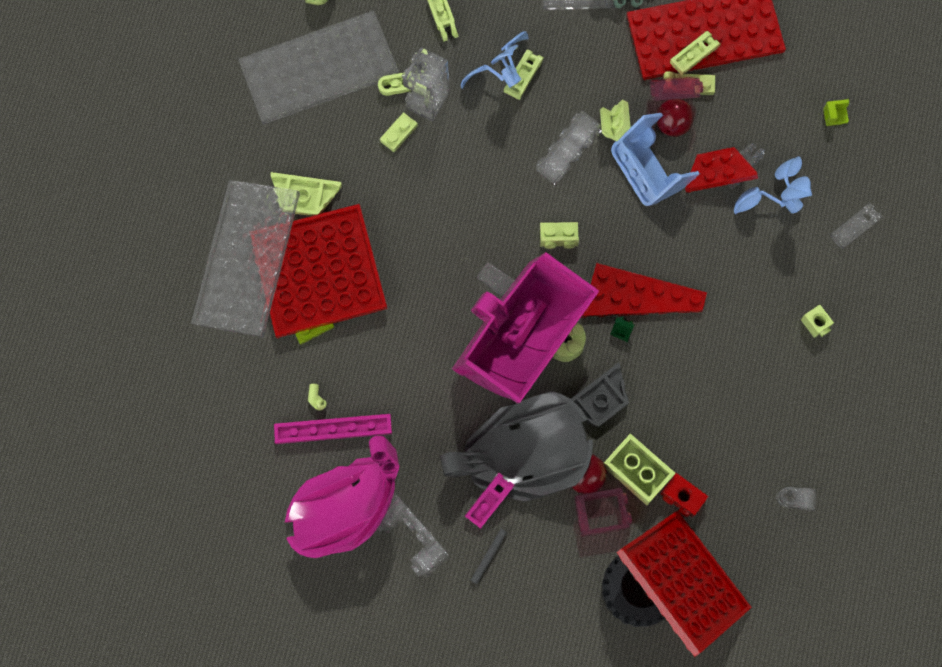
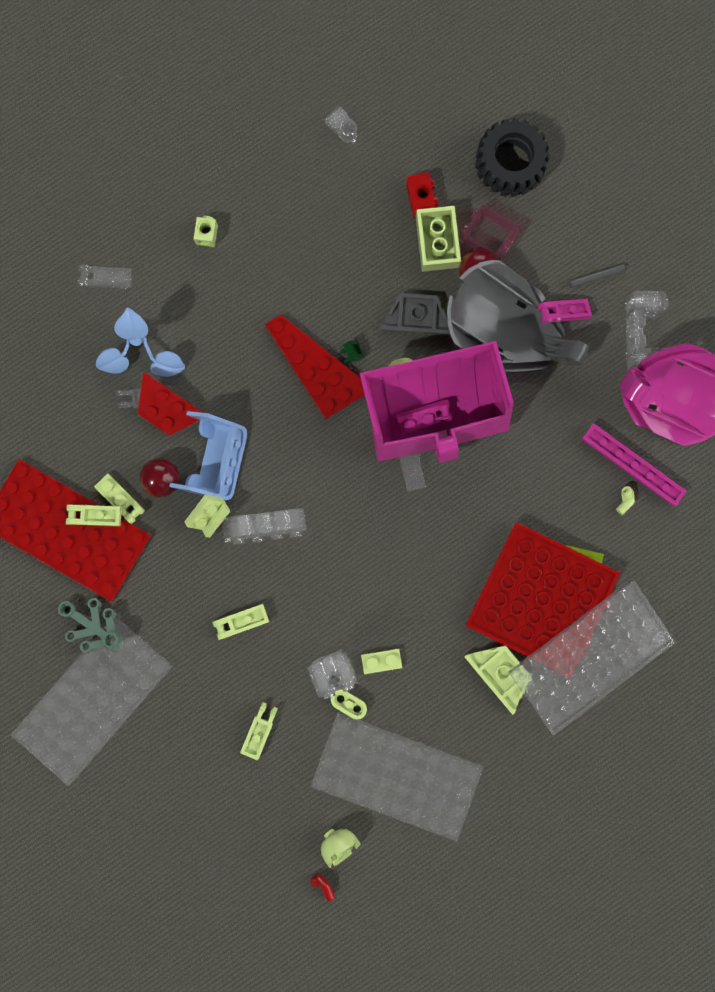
camera: 145 degrees left, 10 degrees up
(509, 73) = (253, 633): light blue plant -> none
(559, 234) = (332, 466): yellowish green bracket -> none
(675, 88) = (139, 496): clear pink window -> none
(684, 582) = (485, 124): red plate -> none
(836, 112) = (33, 374): lime panel -> none

